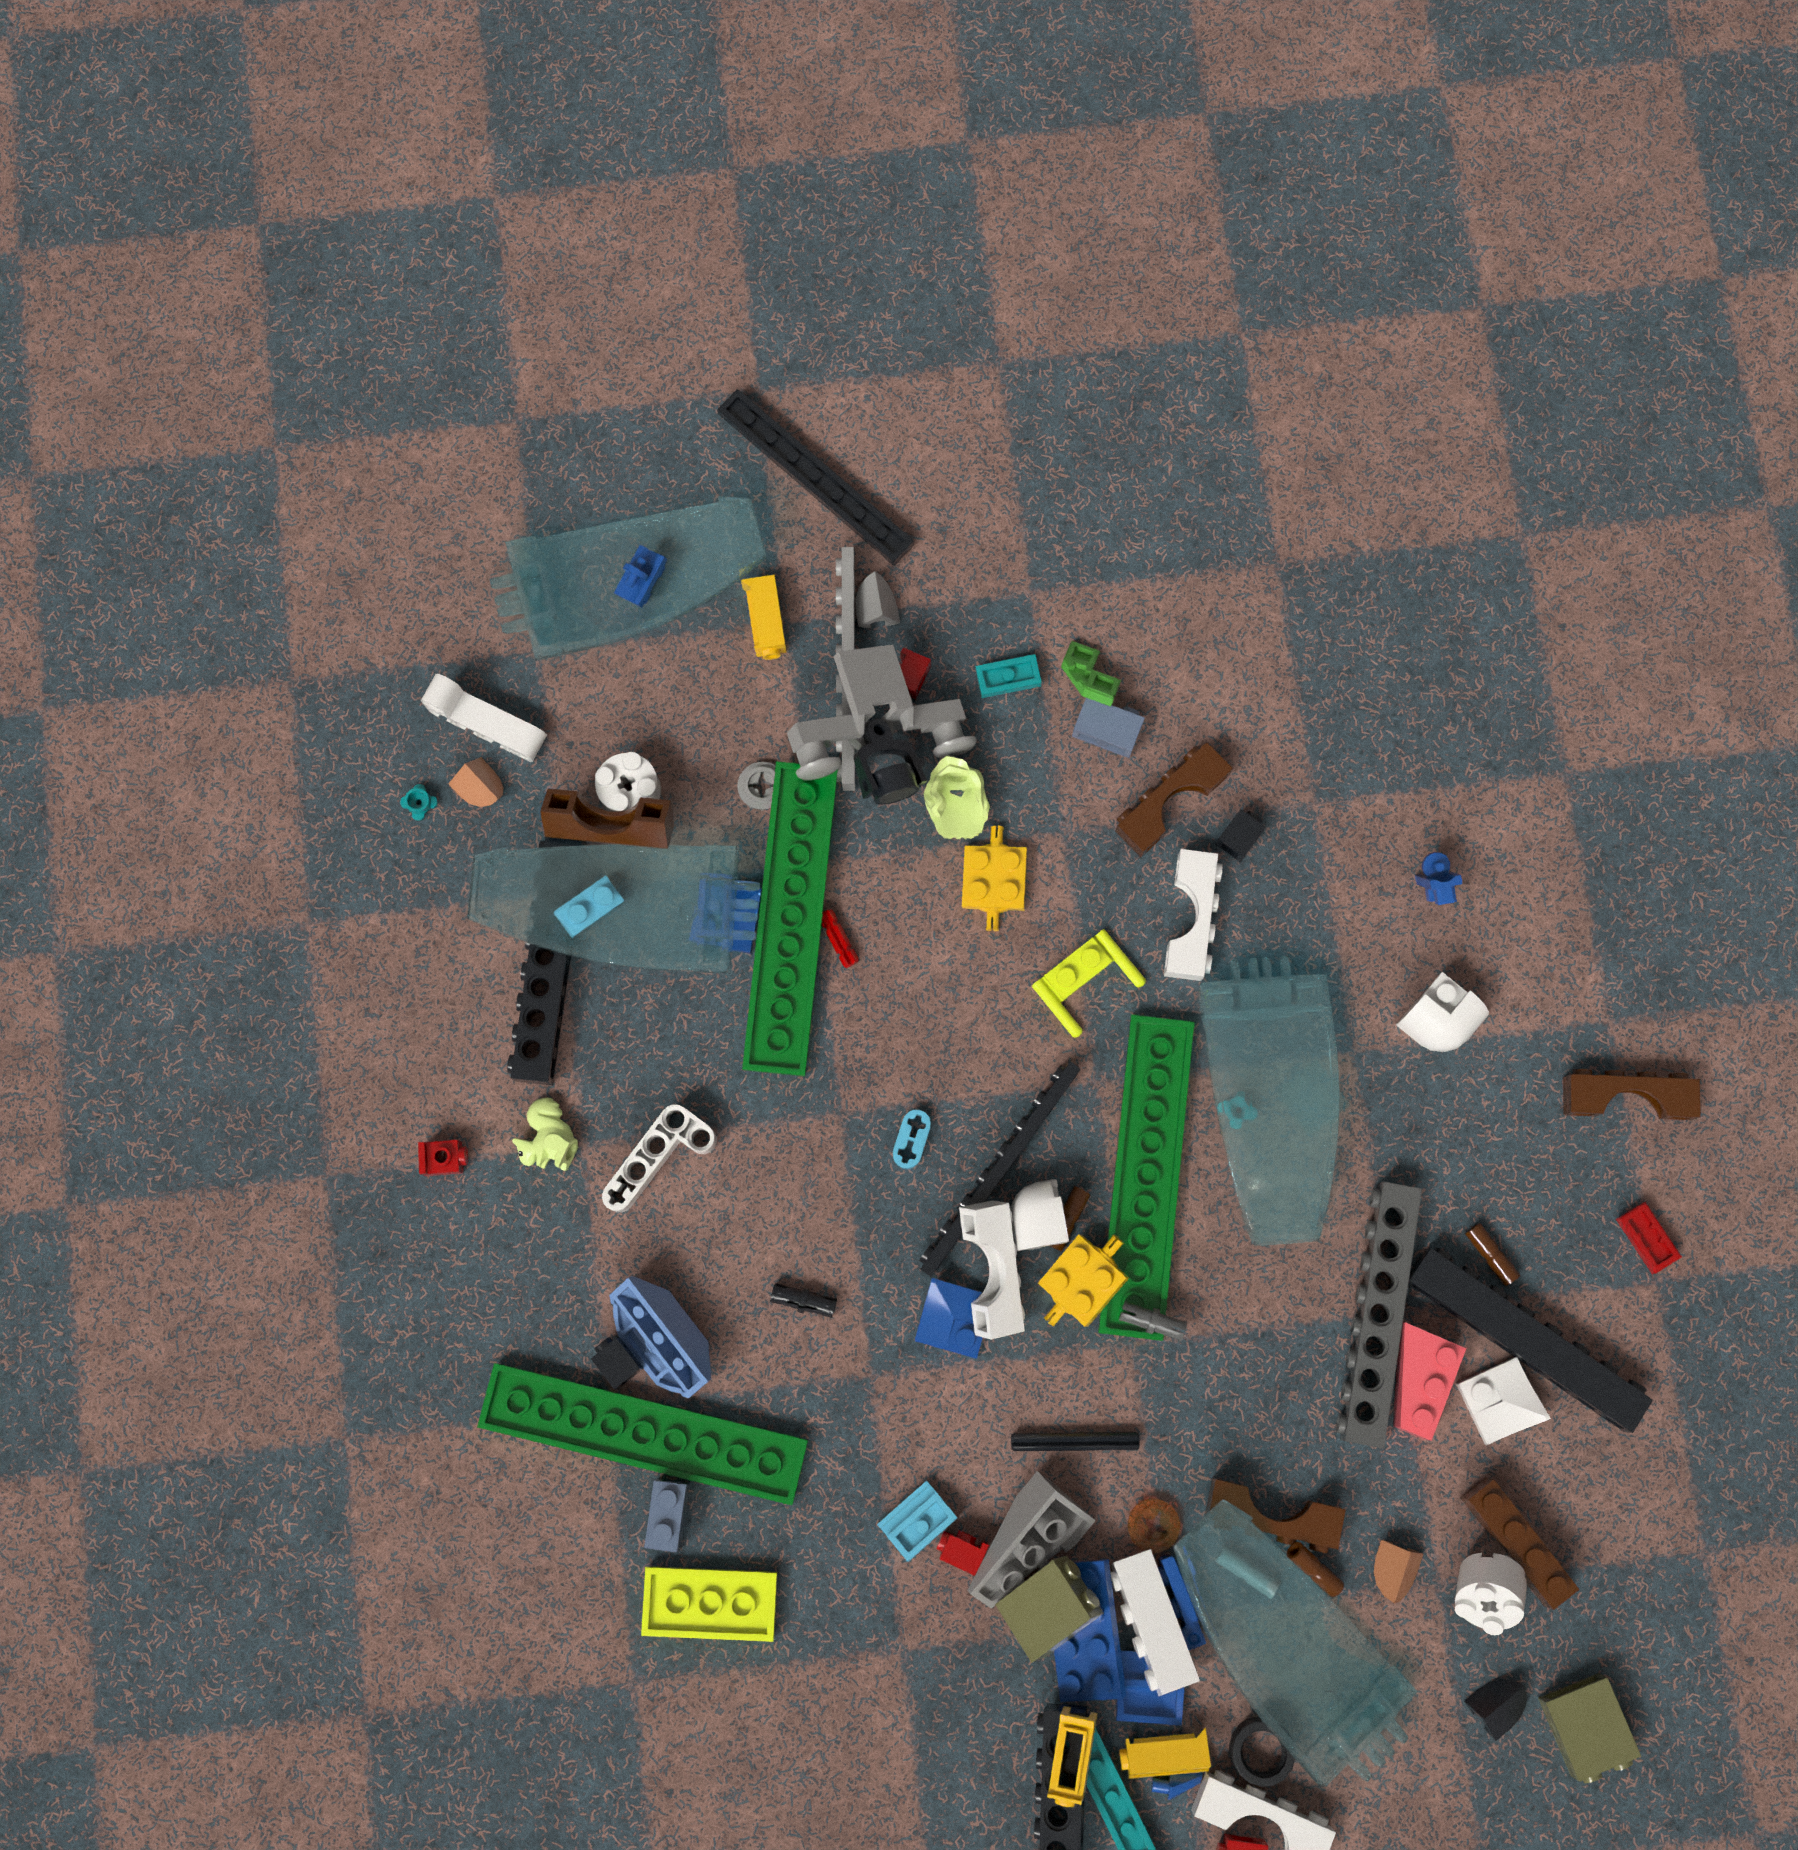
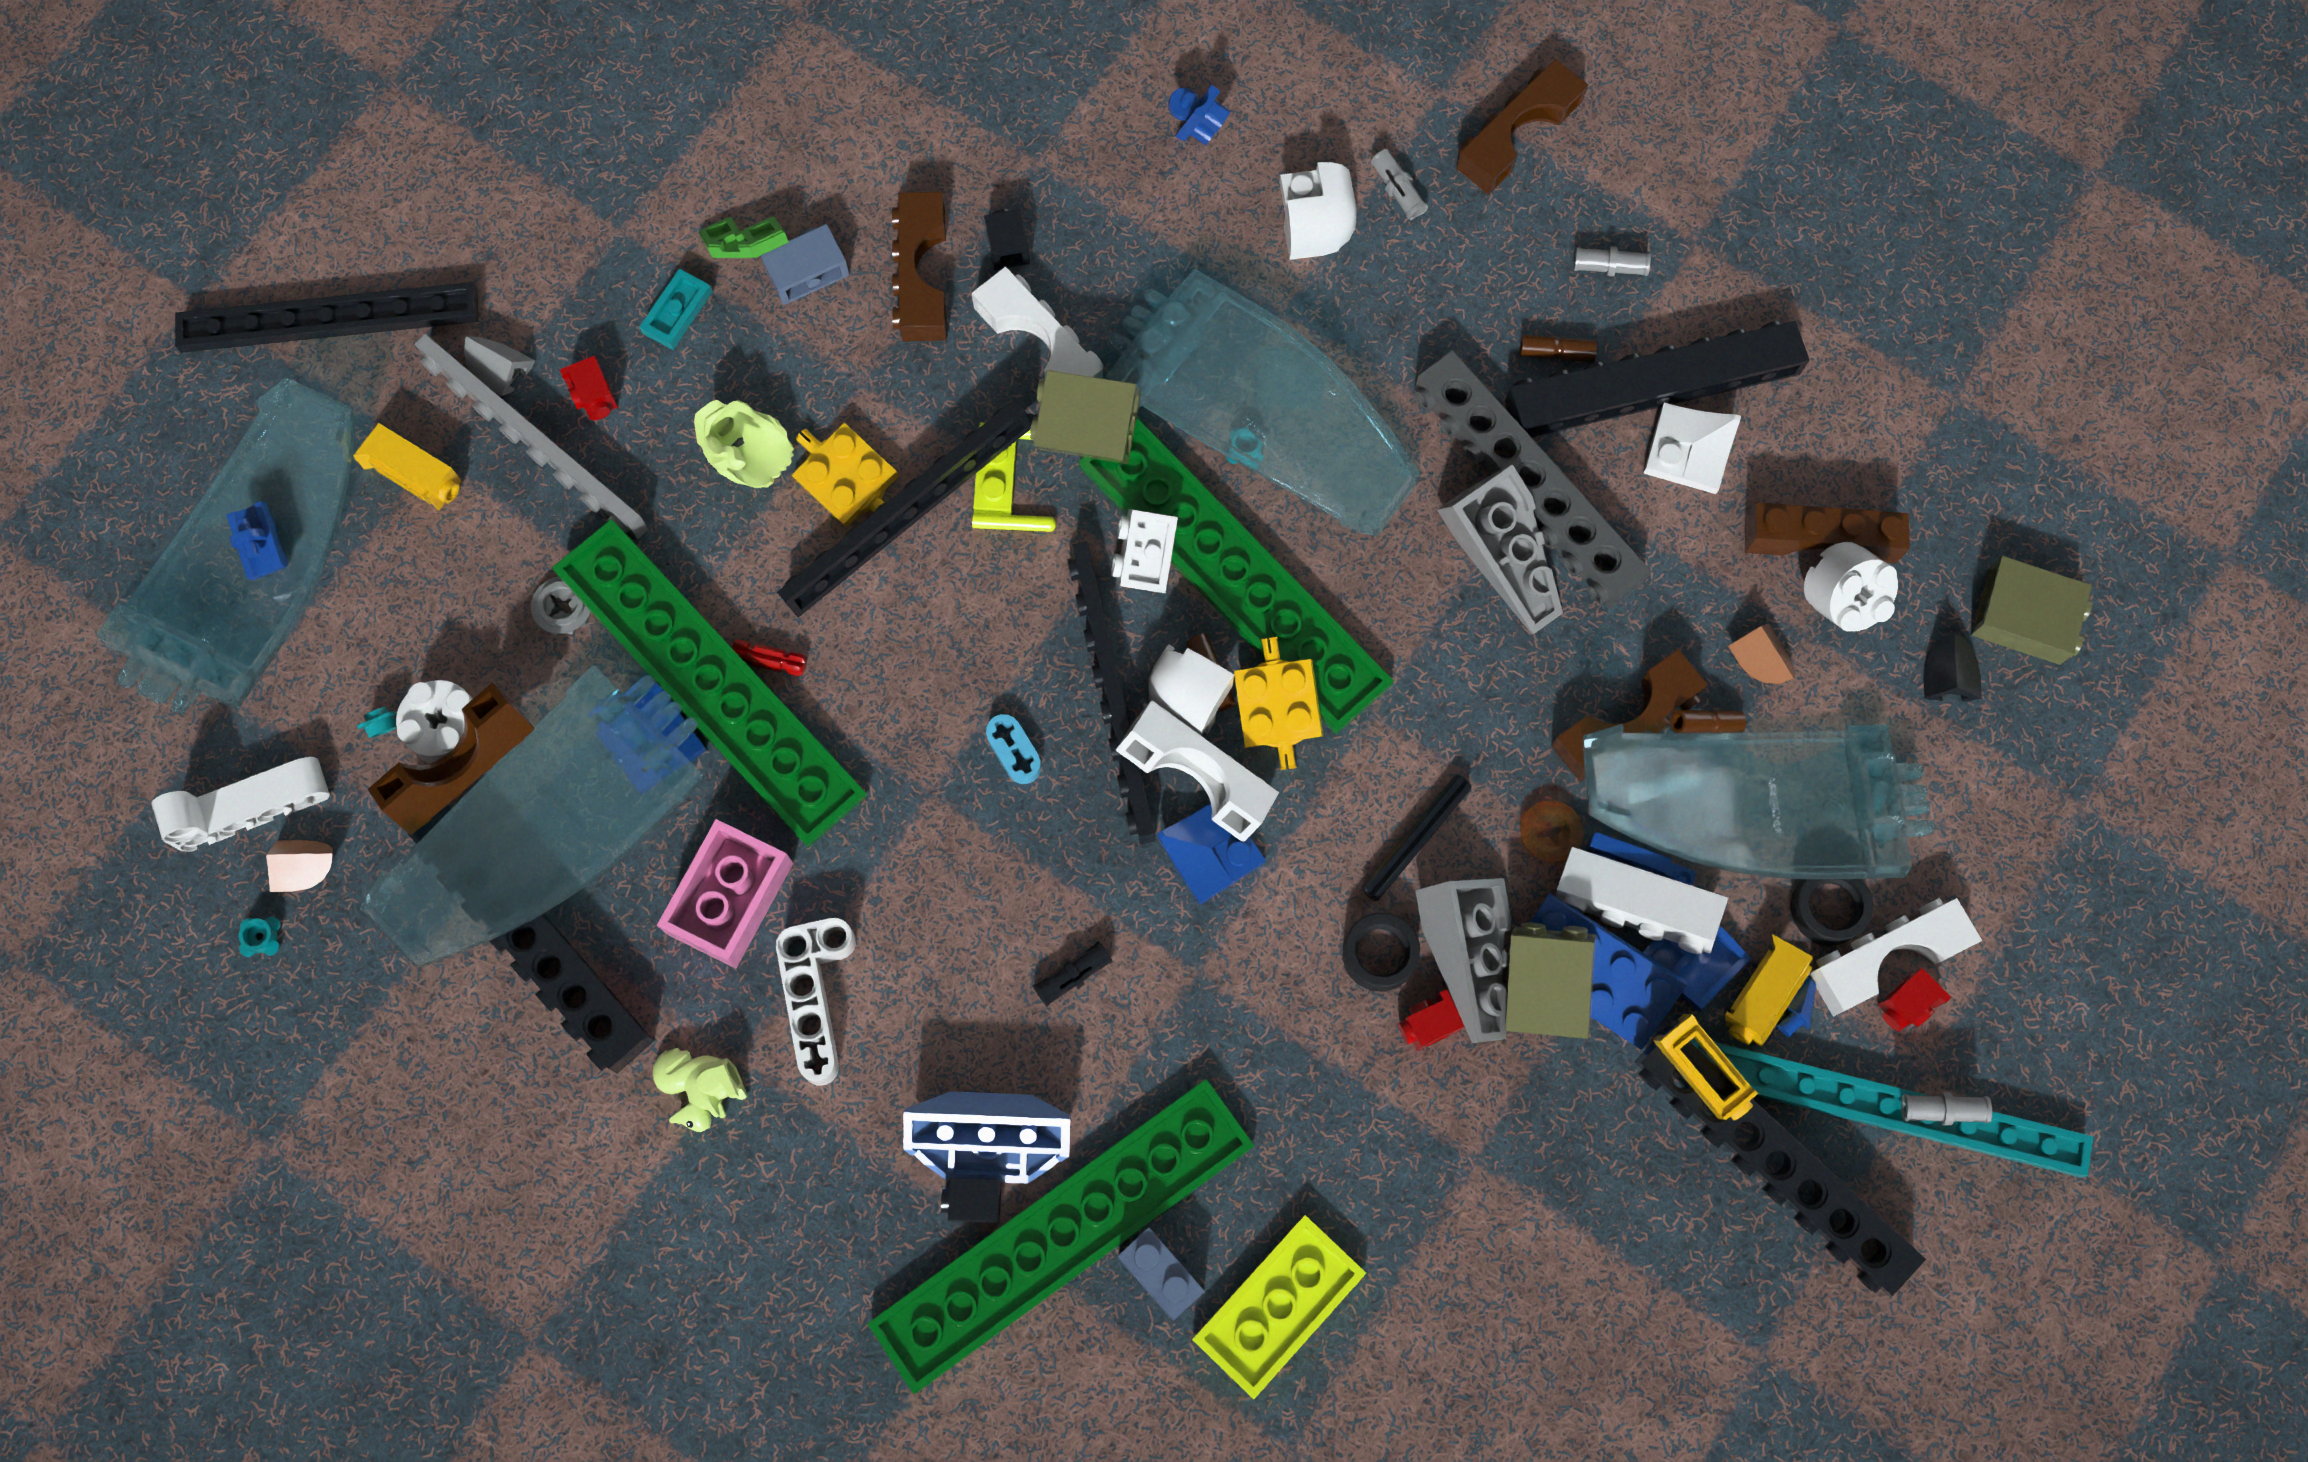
camera: 55 degrees left, 5 degrees down
(428, 1157) = (622, 1223): red brick -> none
(588, 906) = (517, 850): medium azure plate -> none
(598, 749) = (378, 722): none -> teal plate
(670, 1049) = (725, 893): none -> bright pink brick
(869, 680) = (562, 408): light grey piece -> none
(917, 1521) = (1368, 1041): medium azure plate -> none
(1004, 1486) = (1402, 930): none -> black tyre
(1014, 938) = (905, 508): none -> black plate
(1107, 1110) = (1144, 550): none -> white bracket
(1153, 1321) = (1368, 671): dark grey pin -> none
(1160, 996) = (1086, 416): none -> olive brick
(1323, 1329) = (1501, 537): none -> light grey wedge
(1423, 1380) = (1621, 491): coral wedge -> none
(1514, 1050) = (1399, 184): none -> light grey pin
(1588, 1239) = (1612, 261): none -> light grey pin
(1648, 1238) = (1653, 214): red plate -> none

